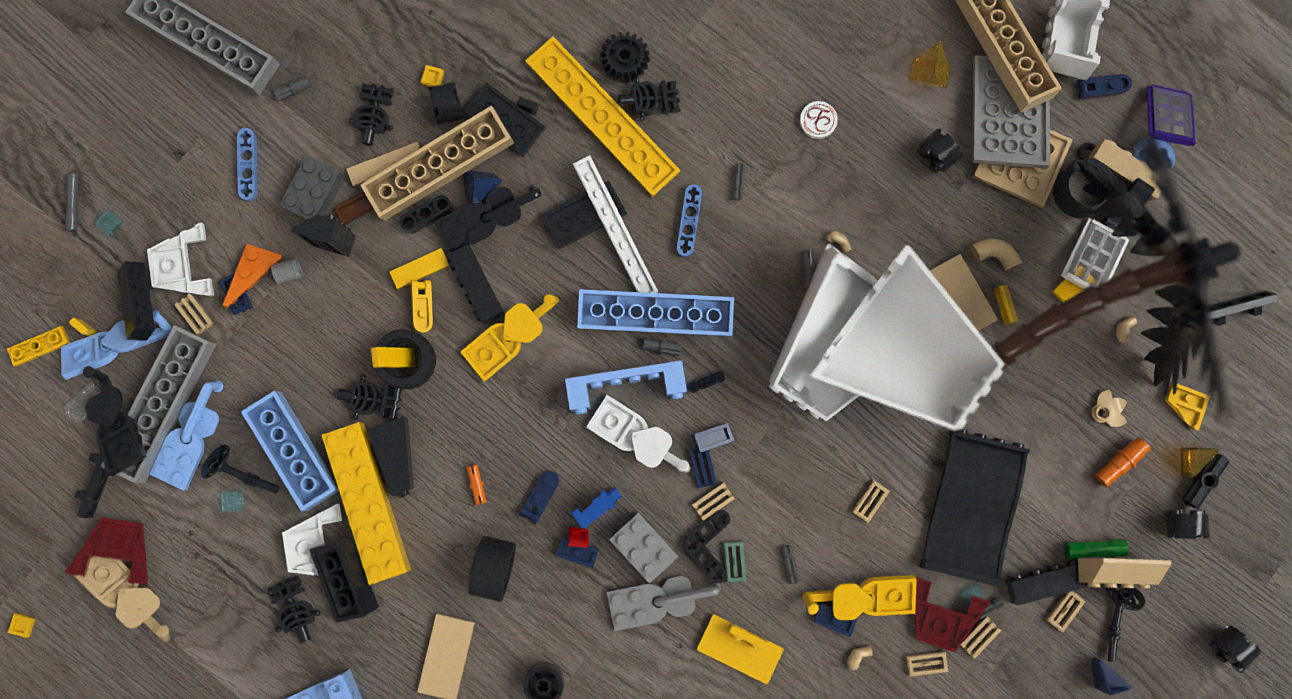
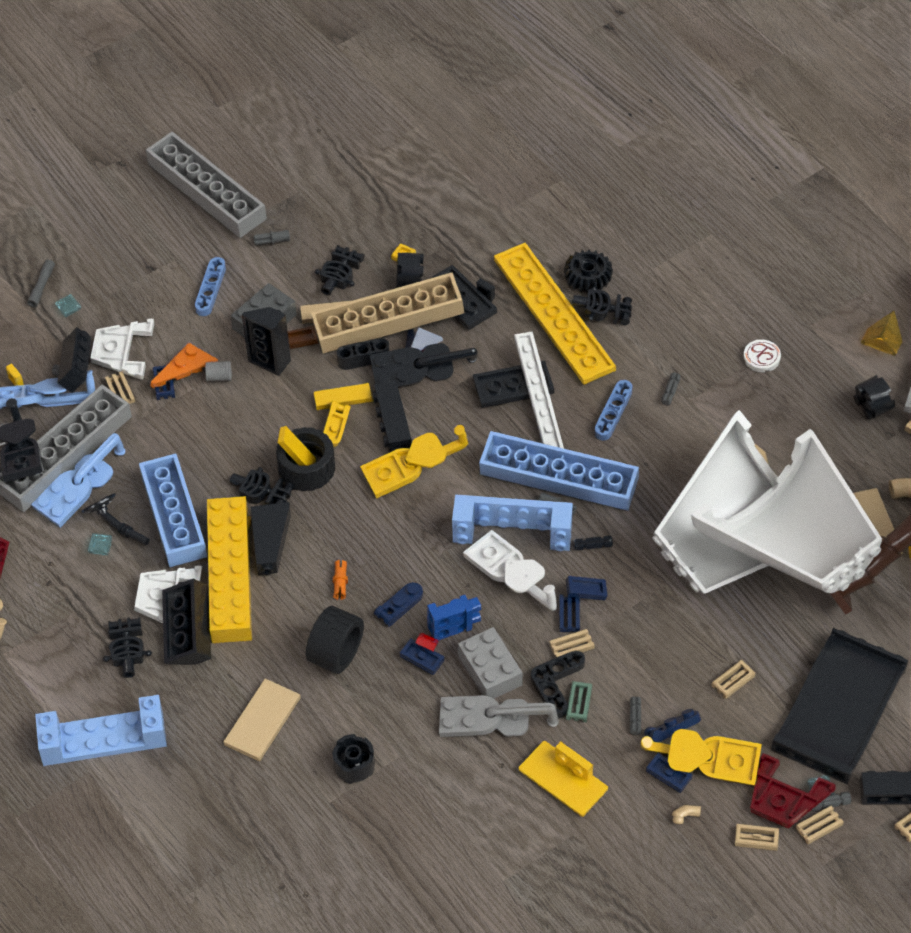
camera: 20 degrees right, 30 degrees down
(828, 570) = (687, 719): none -> dark blue plate

